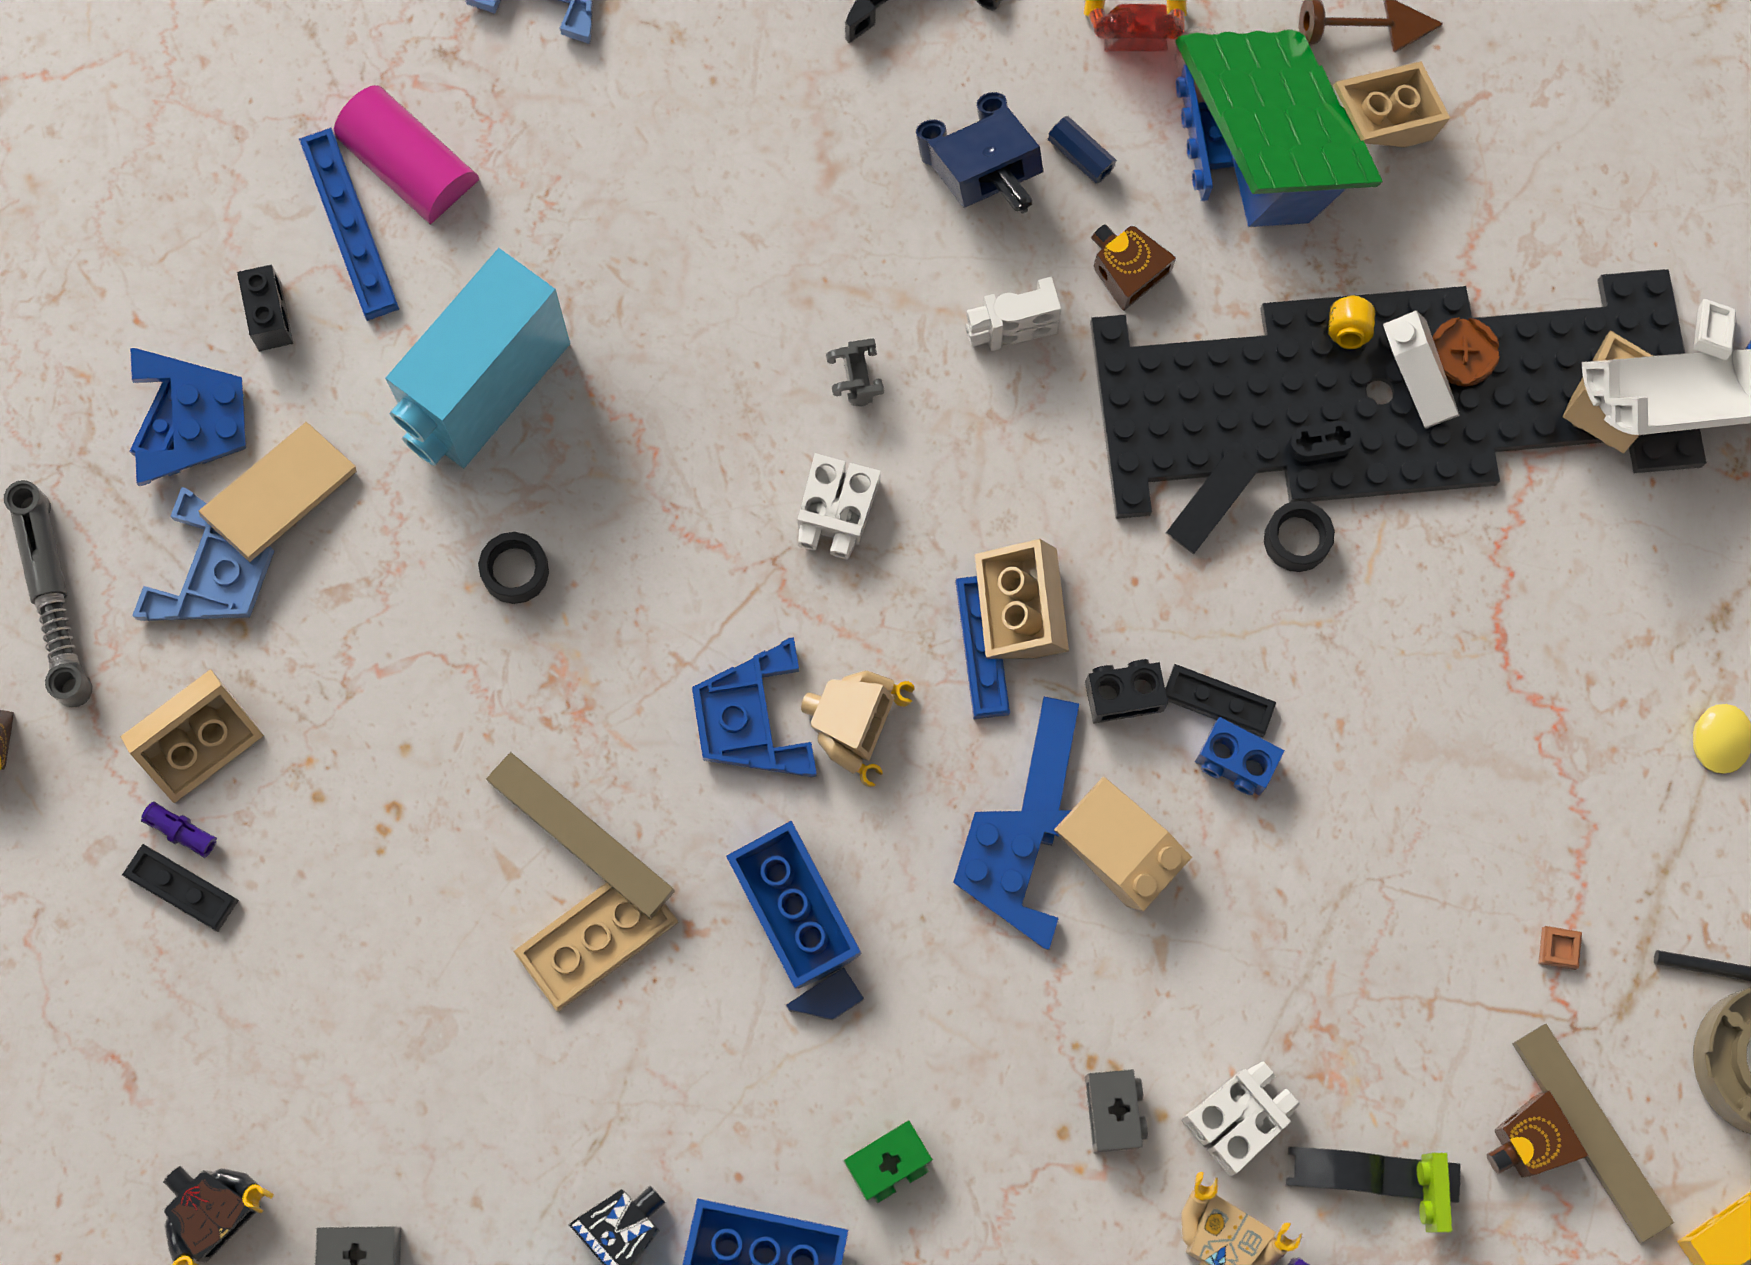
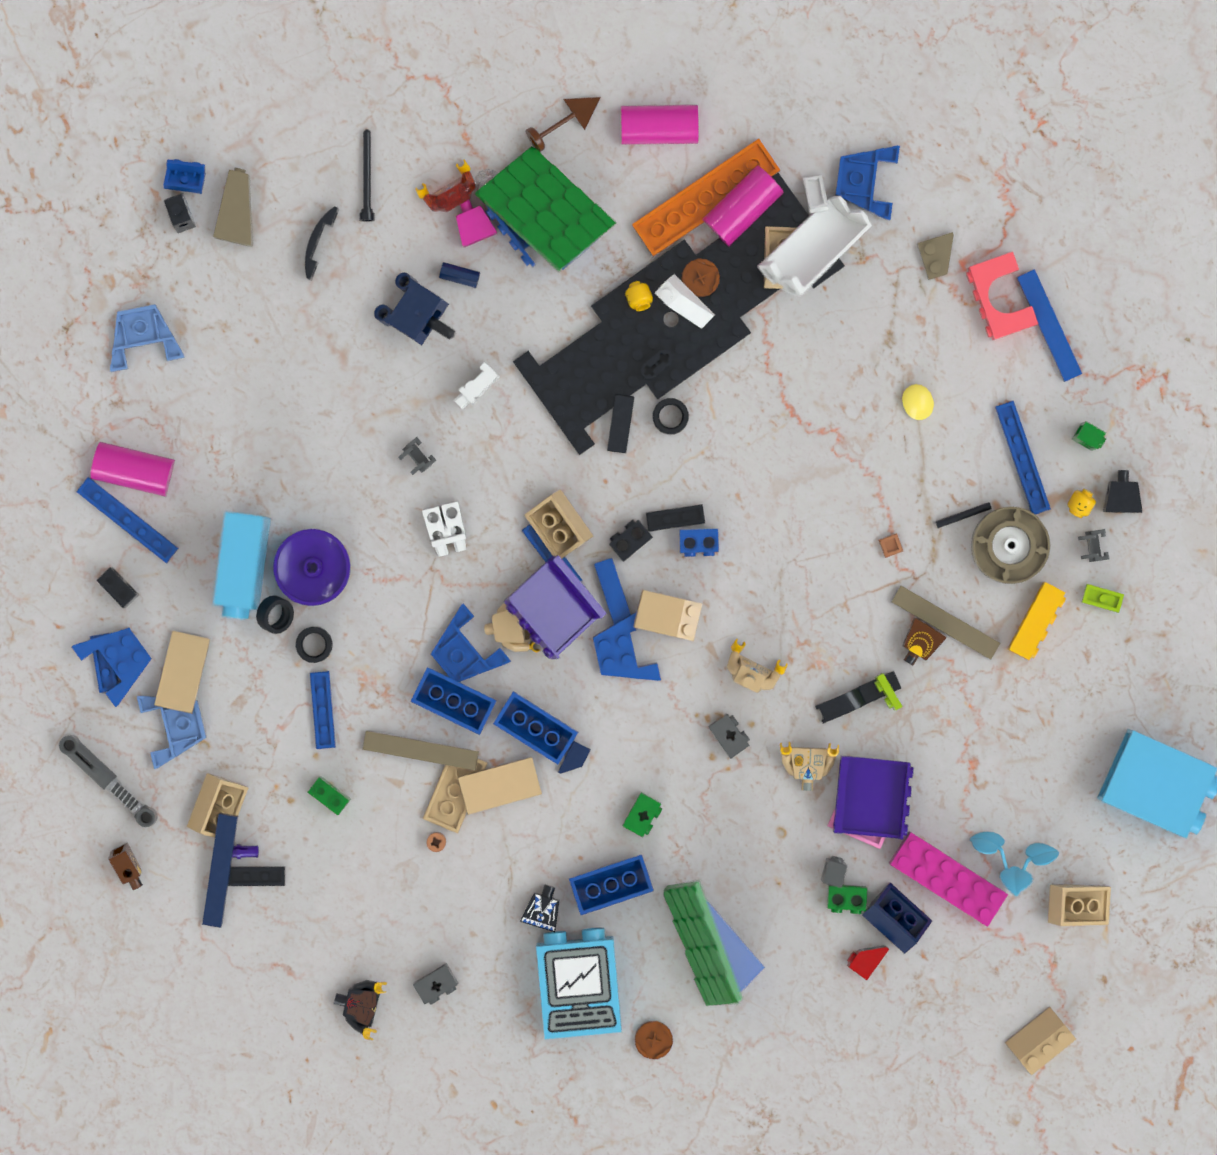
camera: 25 degrees left, 15 degrees up
(125, 839) = (220, 870): none -> dark blue tile
(383, 821) = (329, 795): none -> green brick
(462, 681) = (322, 710): none -> blue tile
(495, 503) = (285, 619): none -> black tyre
(518, 1006) = (435, 839): none -> nougat wheel
(586, 444) = (312, 567): none -> dark purple dish
(675, 969) = (499, 785): none -> tan tile
(684, 783) = (453, 701): none -> blue brick
(940, 722) = (554, 607): none -> panel
(1130, 263) = (515, 323): reddish brown torso -> none
(1147, 91) = (473, 224): none -> dark pink torso
(1211, 1025) = (750, 673): none -> tan torso
(1251, 1108) = (787, 700): white hips -> none
(1393, 106) = (599, 169): tan slope -> none
(1515, 106) = (659, 124): none -> dark pink brick
(1532, 244) = (688, 207): none -> orange plate
(1593, 281) = (743, 205): none -> dark pink brick

